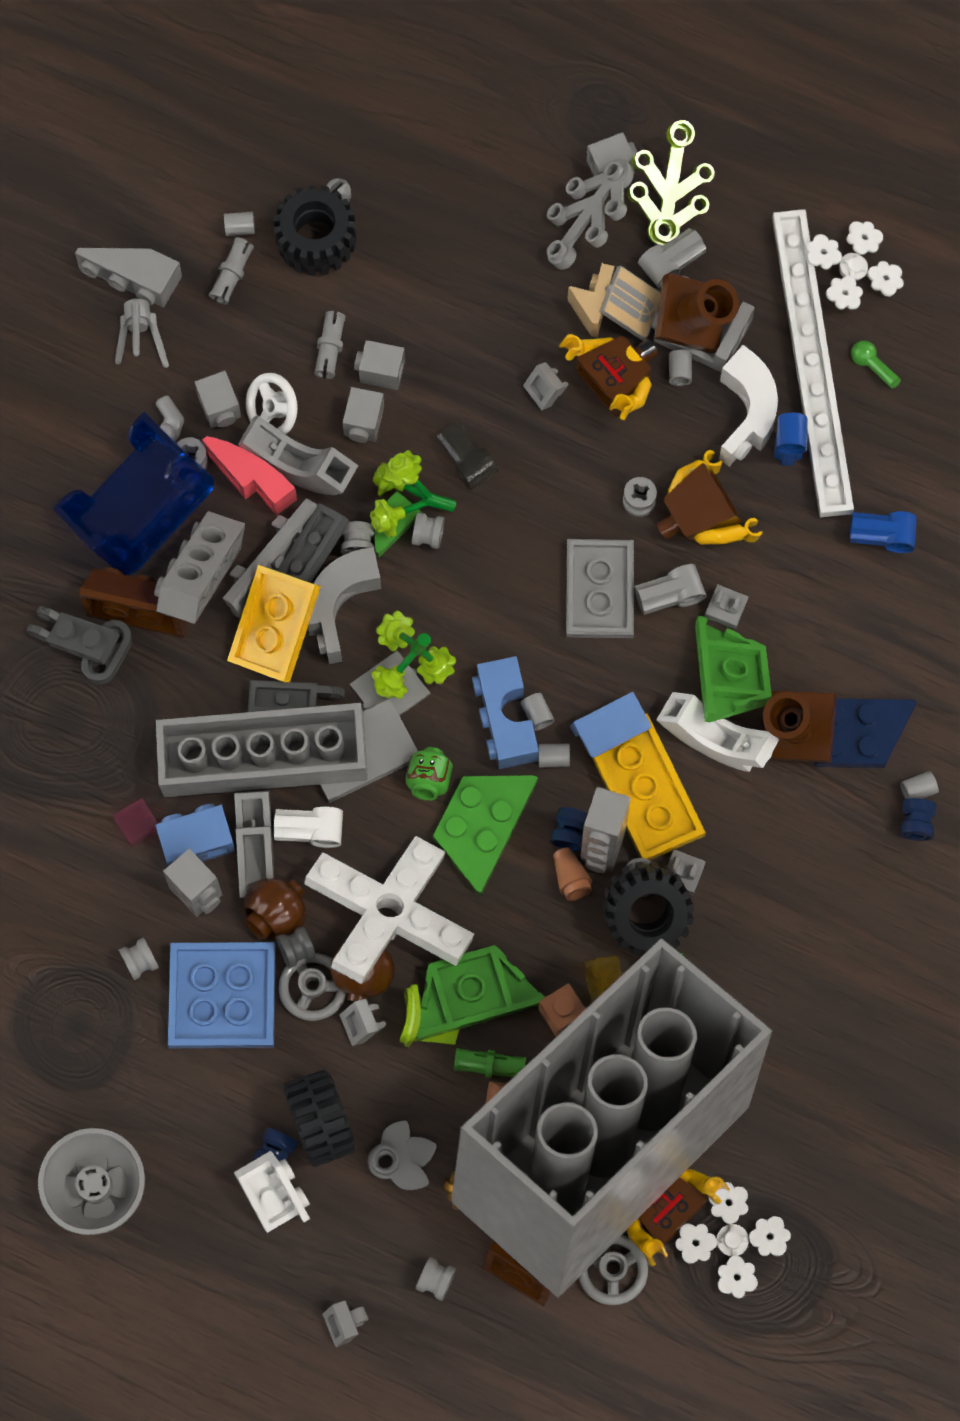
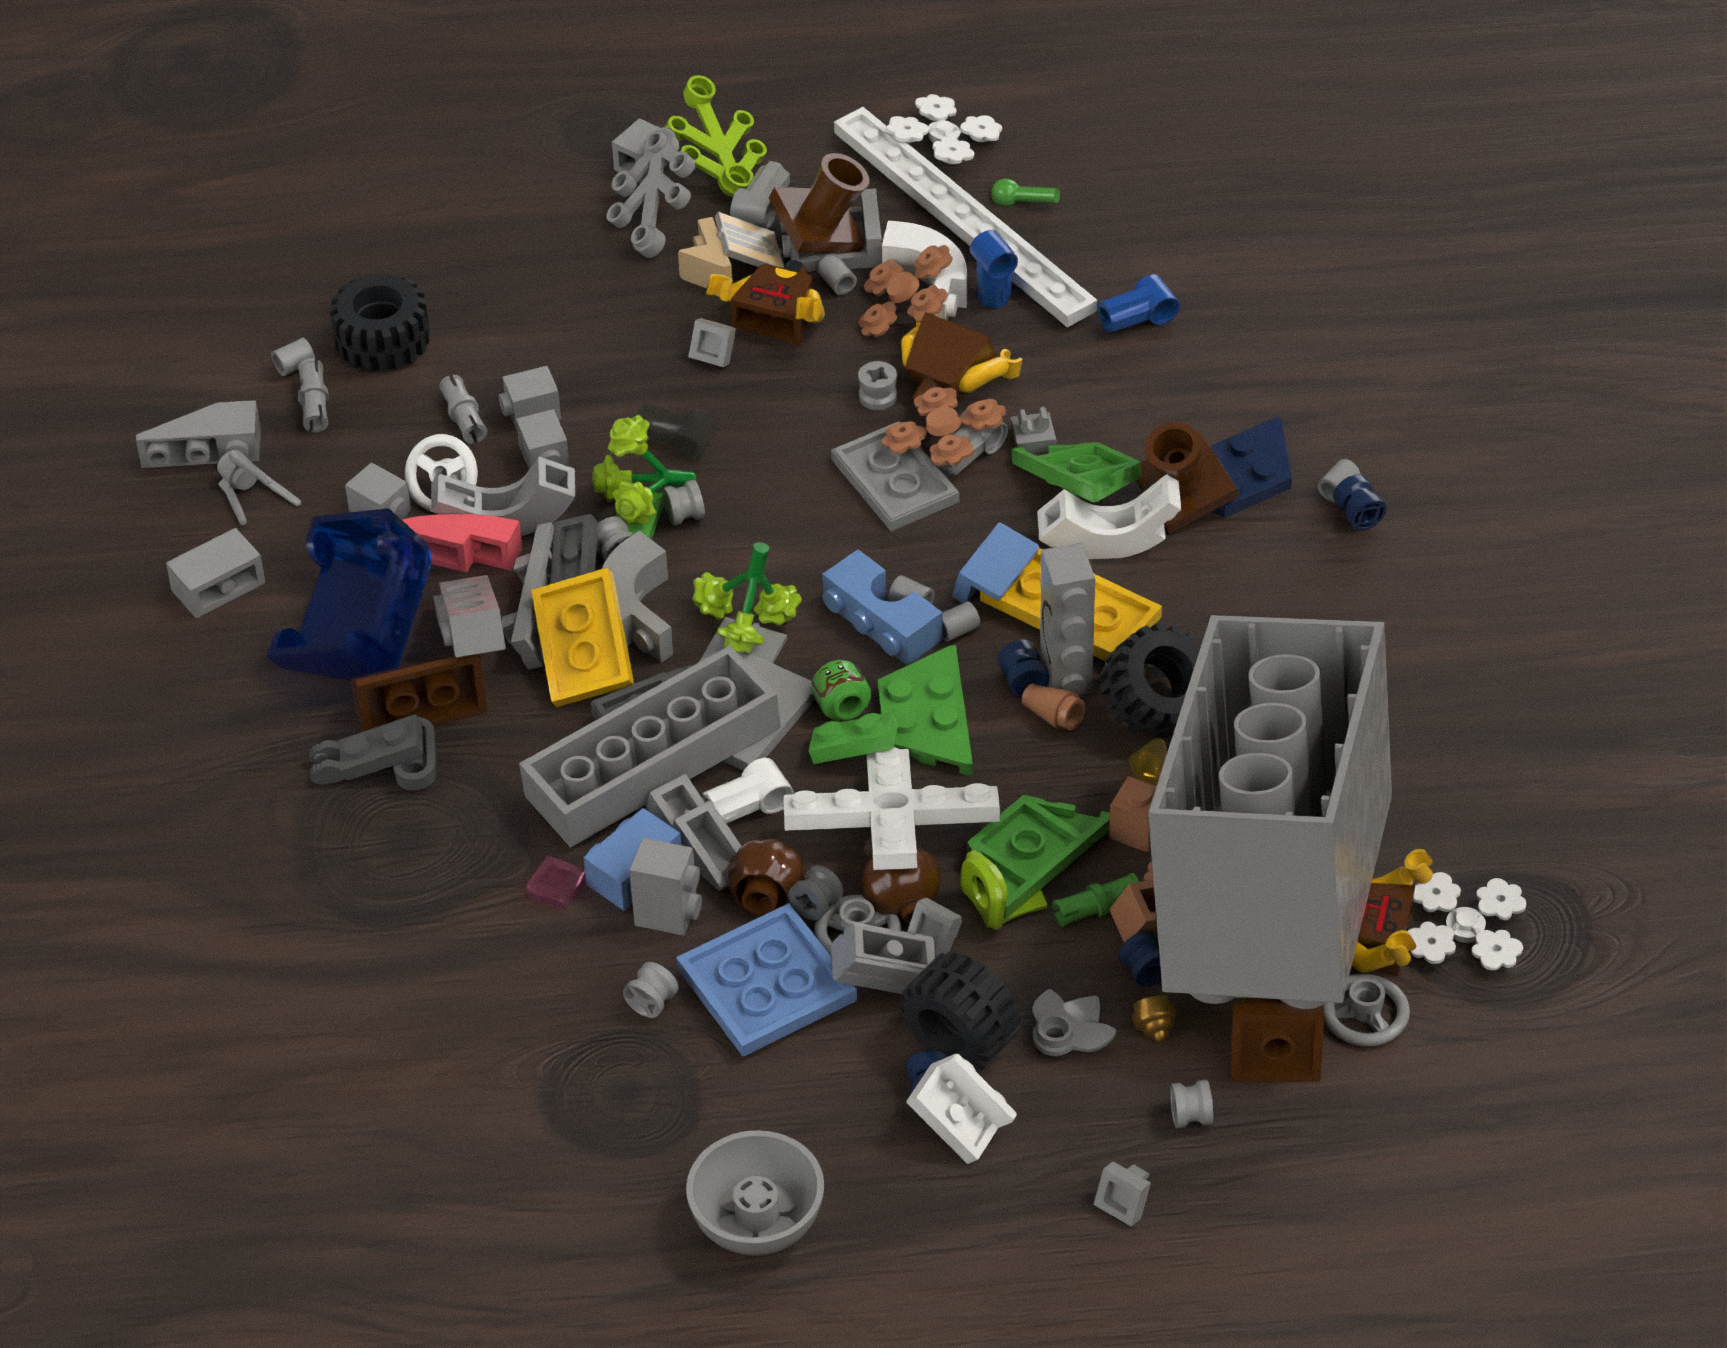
camera: 30 degrees left, 25 degrees down
(66, 405) = (215, 572): none -> light grey brick
(299, 1037) = (880, 957): none -> light grey brick
(409, 823) = (853, 737): none -> bright green plate
(655, 572) = (942, 421): none -> nougat plant
(714, 417) = (904, 286): none -> nougat plant

